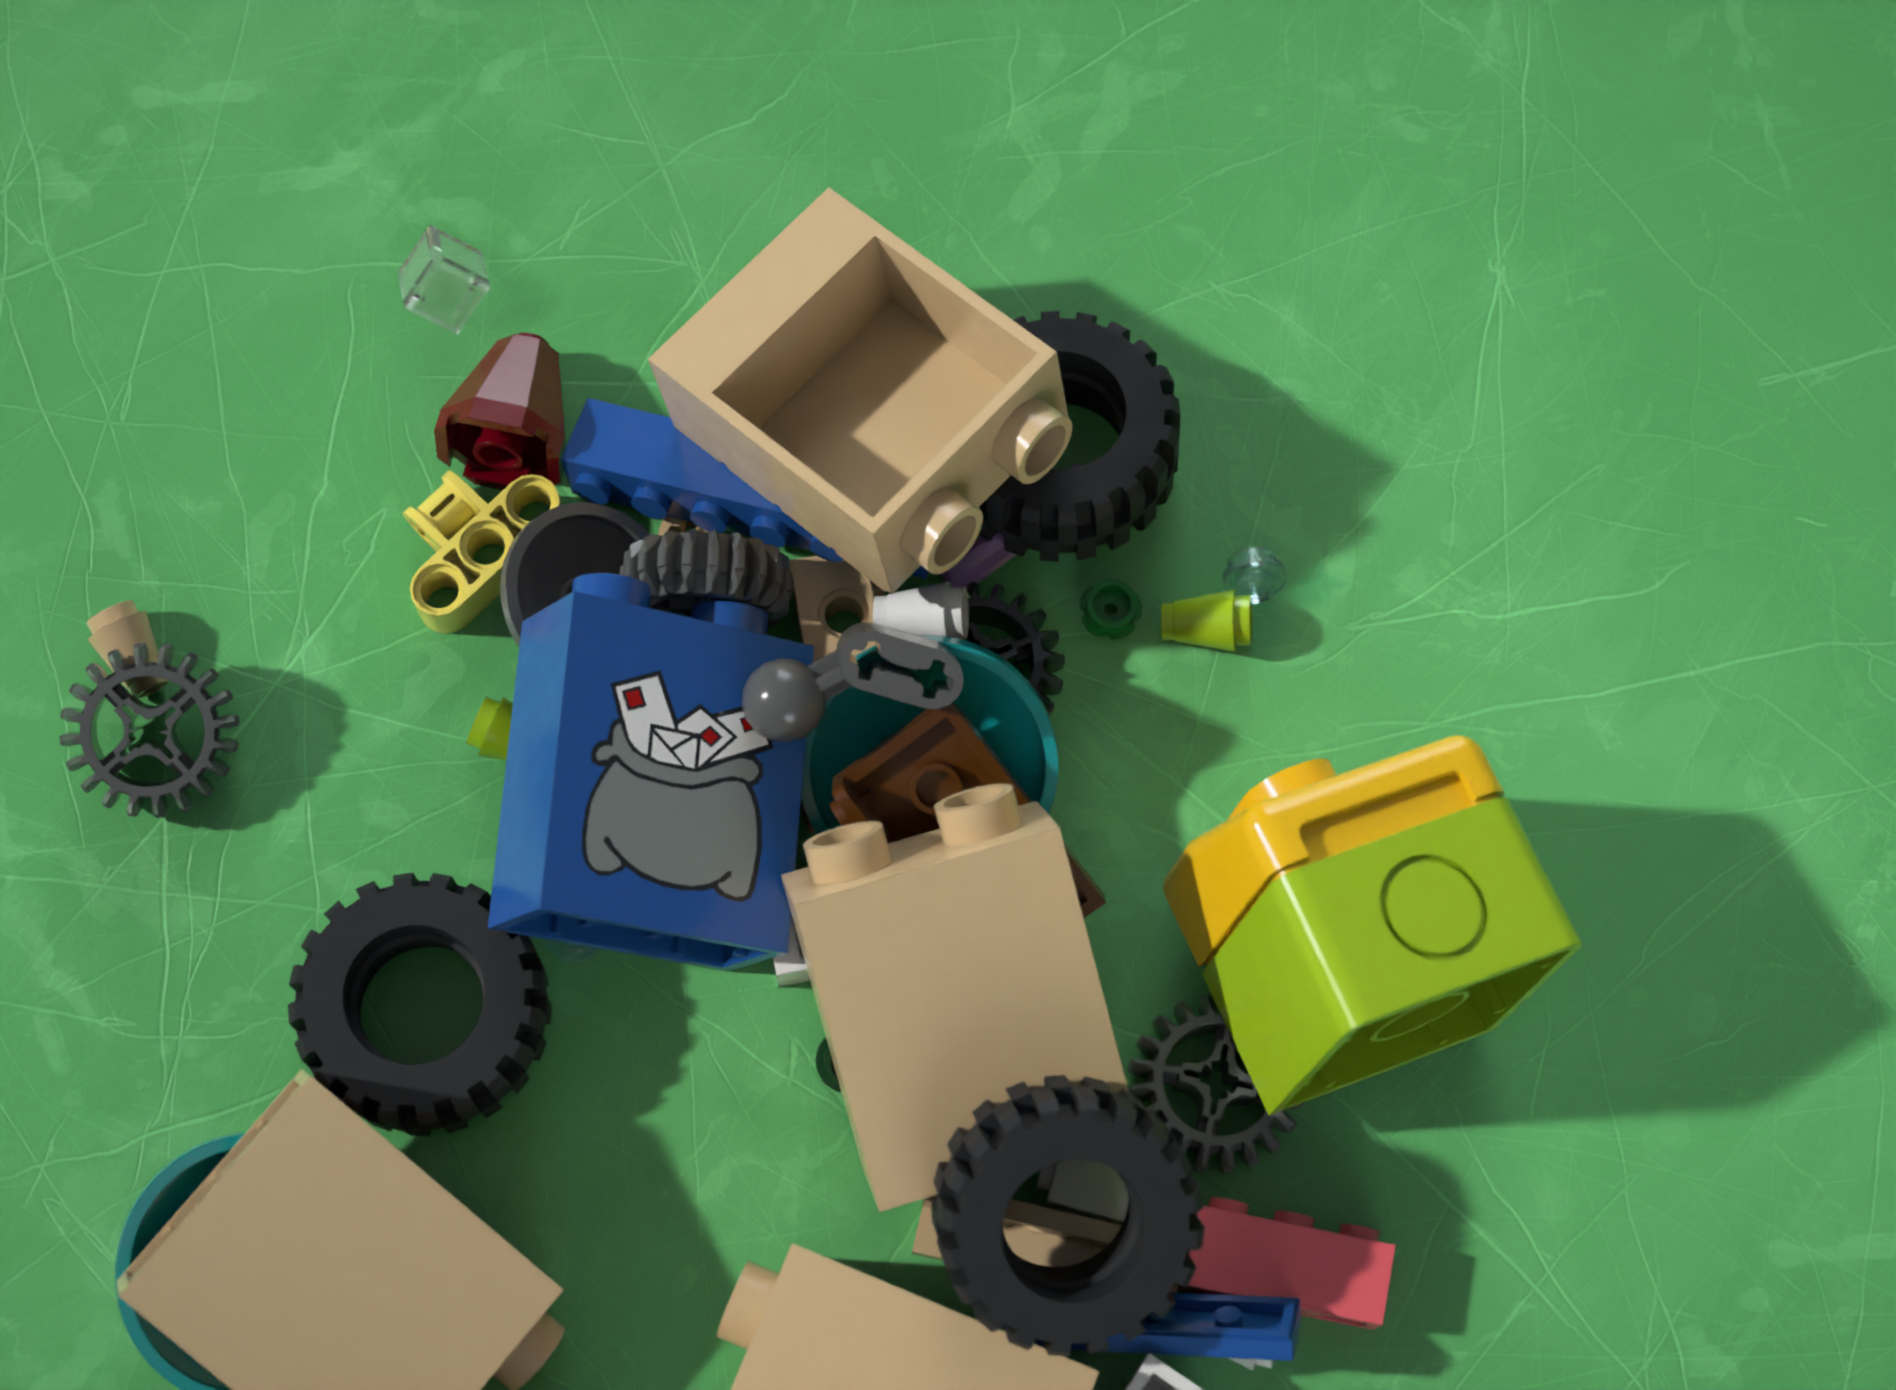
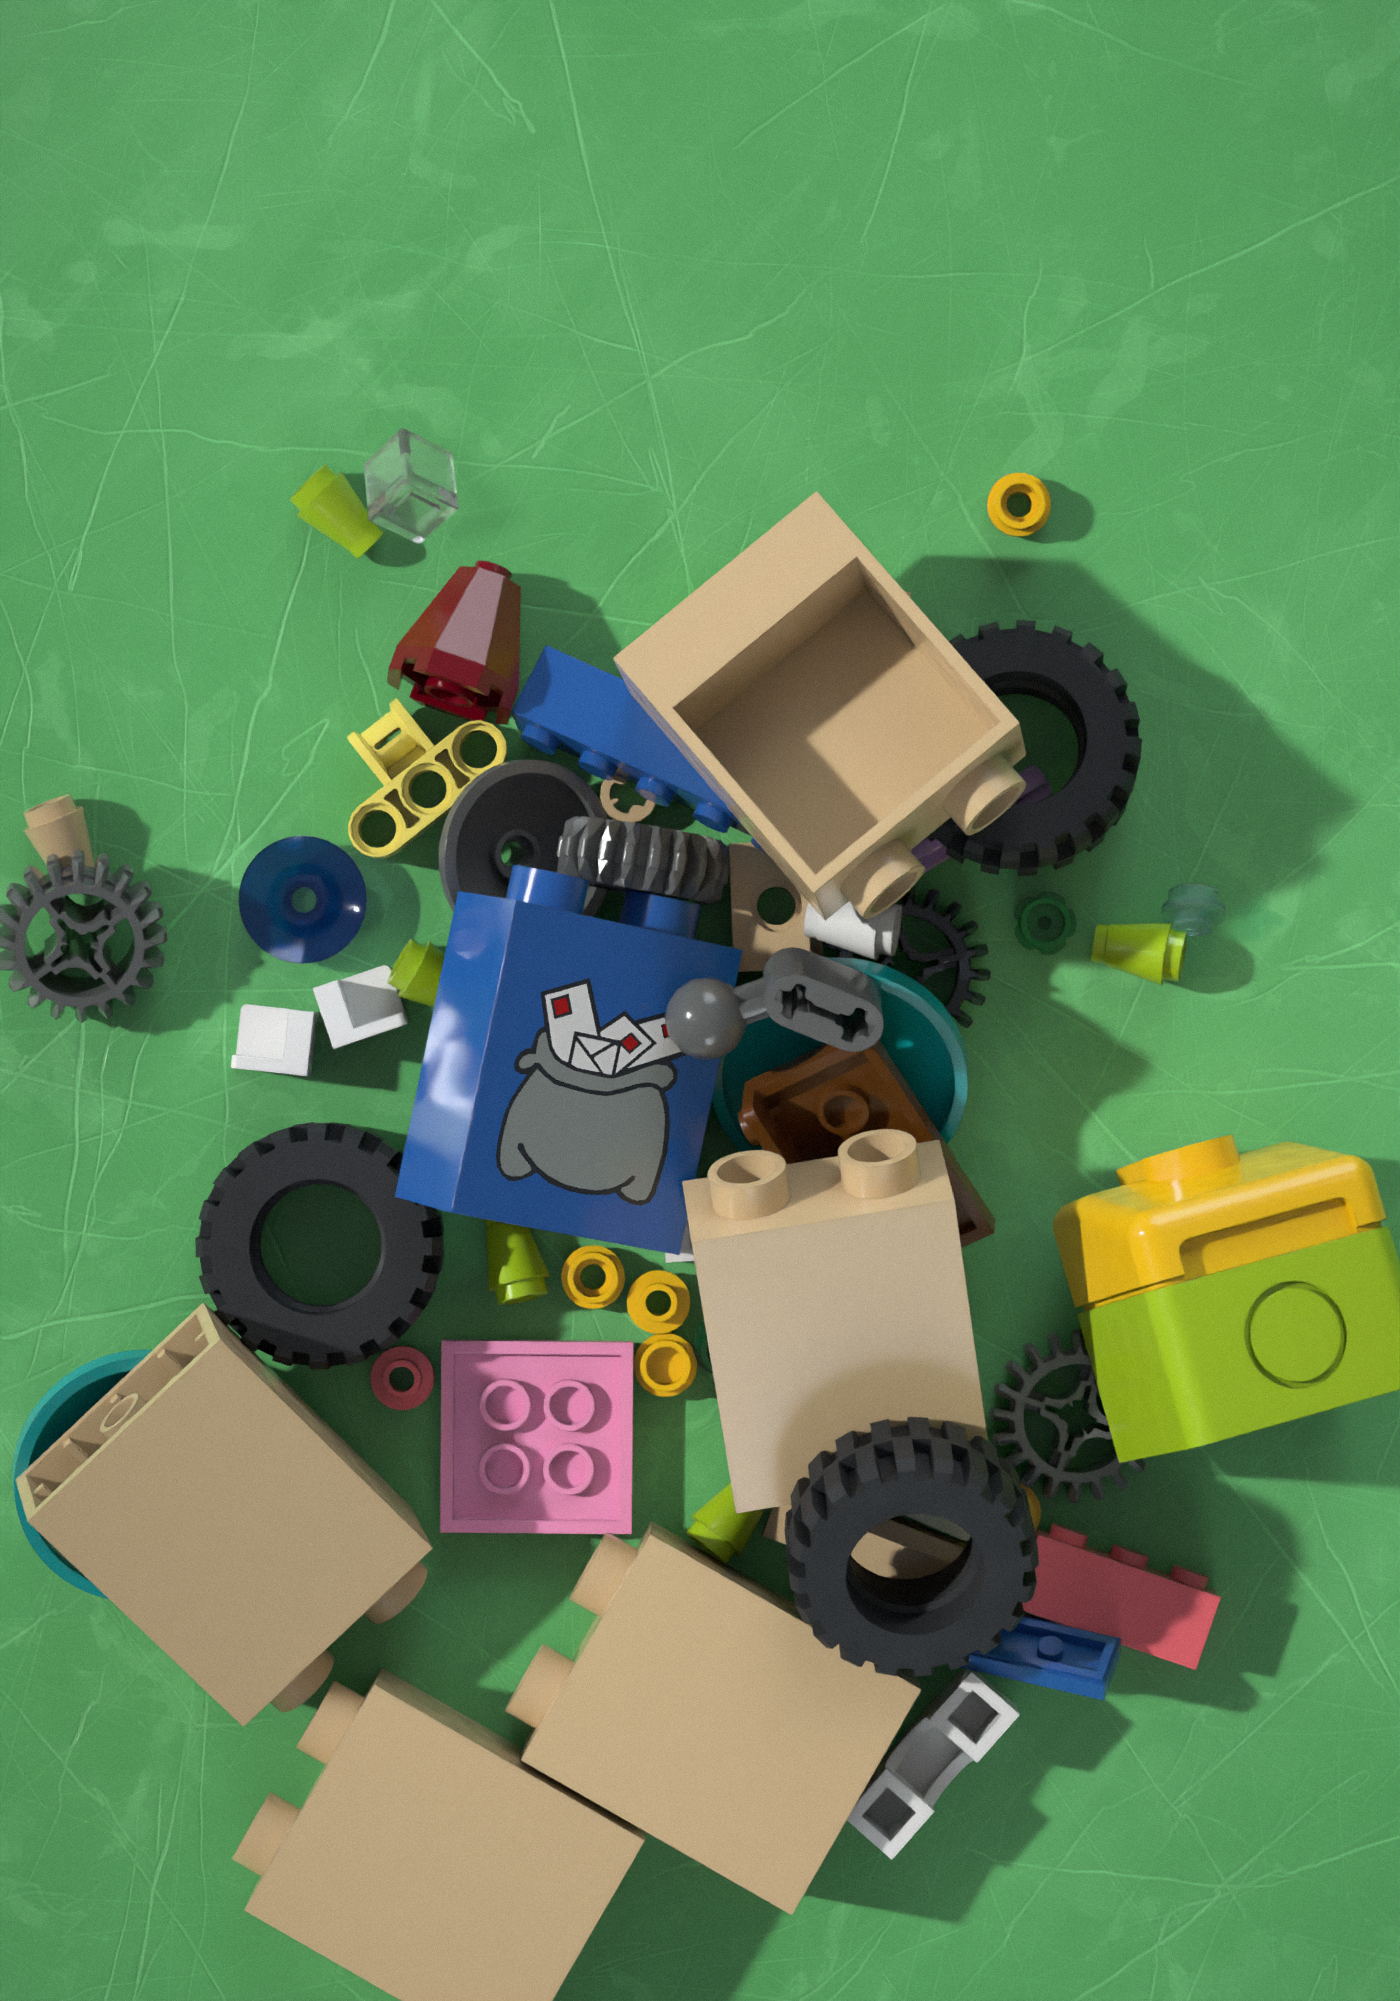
camera: 15 degrees right, 15 degrees up
(361, 815) = (276, 1040): none -> white panel
(366, 644) = (269, 891): none -> clear blue dish
(372, 309) = (336, 511): none -> lime cone
(441, 773) = (360, 1006): none -> white panel
(529, 1156) = (402, 1357): none -> coral plate
(622, 1002) = (514, 1264): none -> lime cone
(665, 1179) = (536, 1436): none -> bright pink plate
(700, 990) = (589, 1297): none -> yellow plate
(775, 1046) = (665, 1282): none -> yellow plate
(790, 1089) = (665, 1364): none -> yellow plate
(875, 1239) = (720, 1529): none -> lime cone
(1028, 215) = (1018, 484): none -> yellow plate

